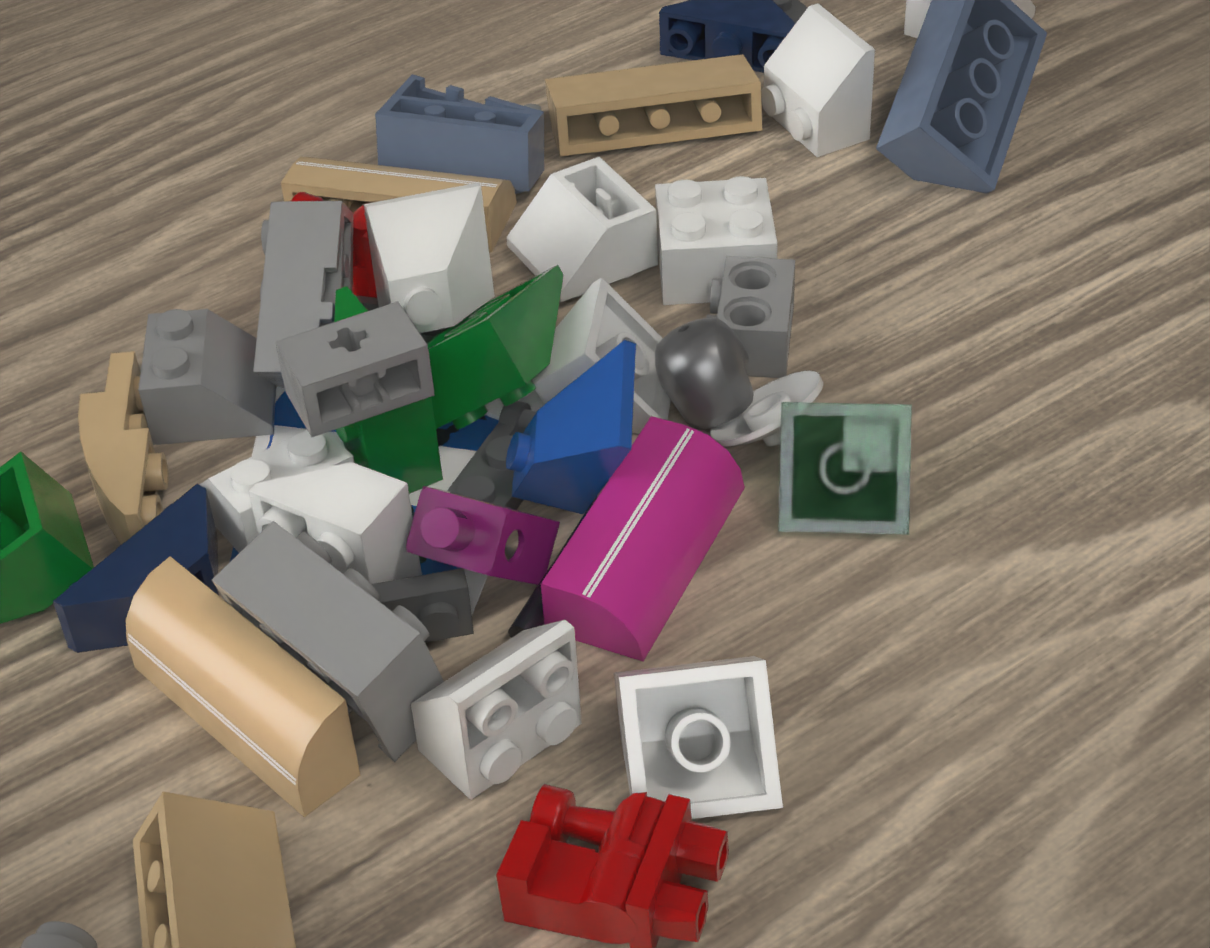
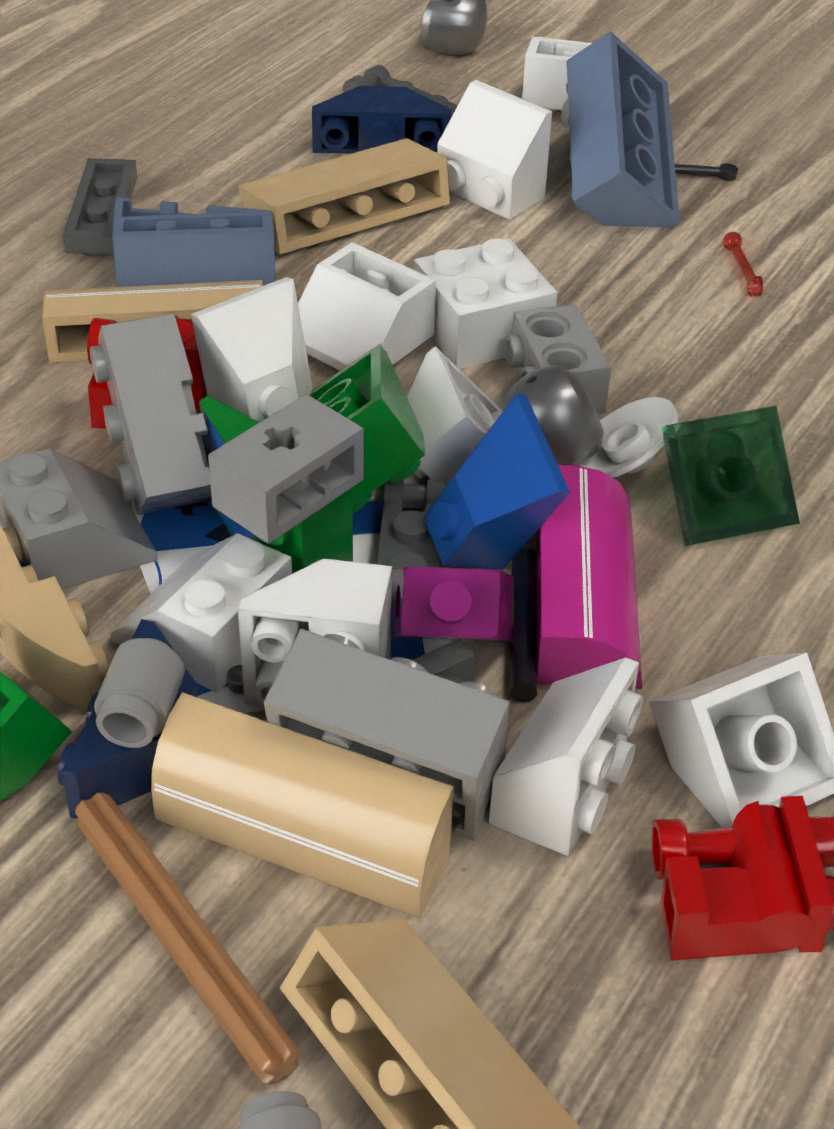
camera: 25 degrees left, 0 degrees up
(91, 778) = (188, 940): none -> medium nougat axle
(137, 545) = (138, 692): none -> light grey brick
(431, 56) = (93, 209): none -> dark grey plate
(1038, 221) = (732, 242): none -> clear red hinge
(1084, 141) = (726, 171): none -> black hinge

